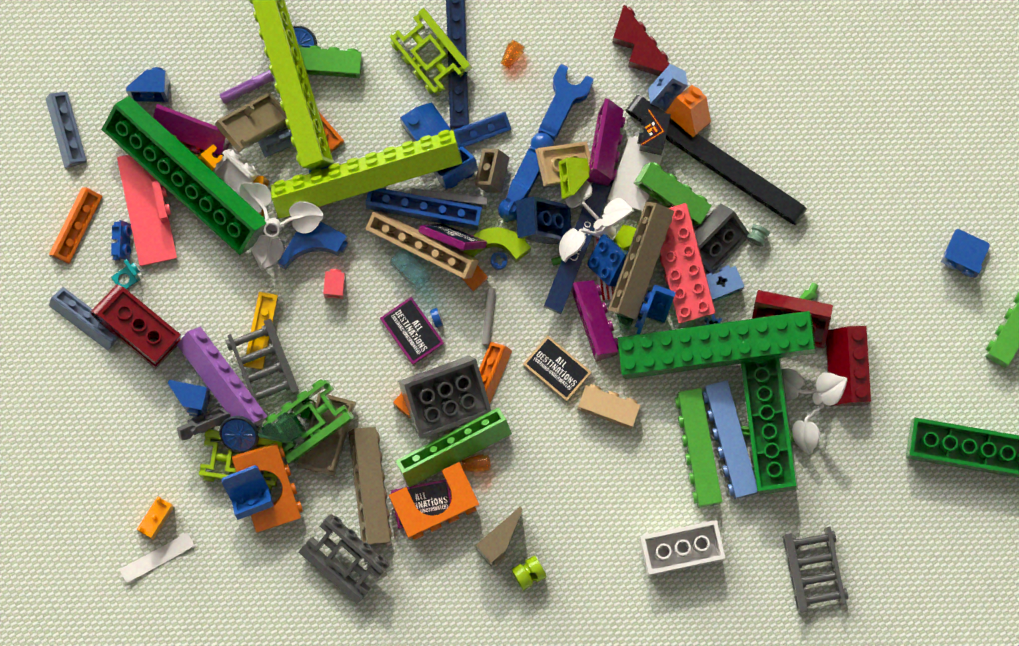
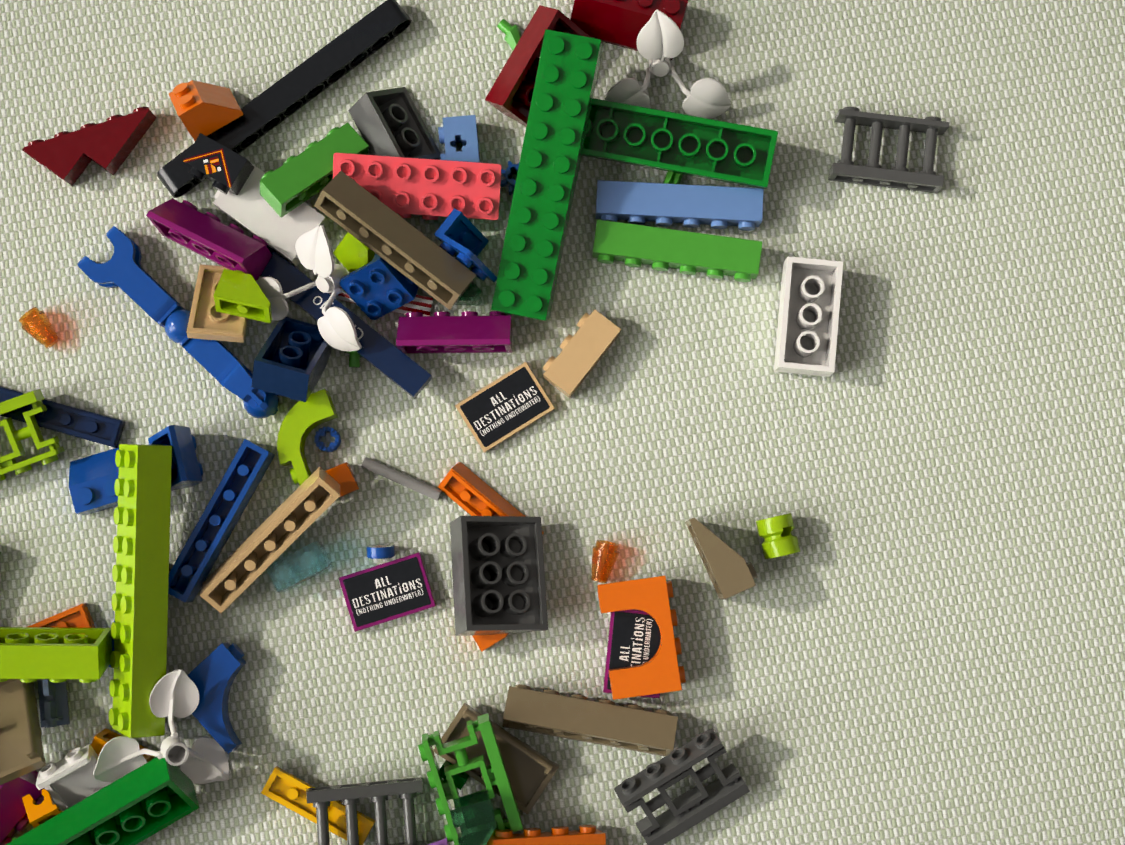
camera: 65 degrees left, 5 degrees up
(334, 284) = (285, 681): coral brick -> none
(452, 236) = (273, 493): tile -> none
(453, 447) = (572, 586): bright green brick -> none
(459, 198) = (224, 460): light grey tile -> none
(482, 129) = (134, 403): blue tile -> none
(492, 170) = (196, 408): dark tan brick -> none
(667, 87) = (160, 126): medium blue brick -> none
(758, 235) = (409, 75): sand green wheel -> none

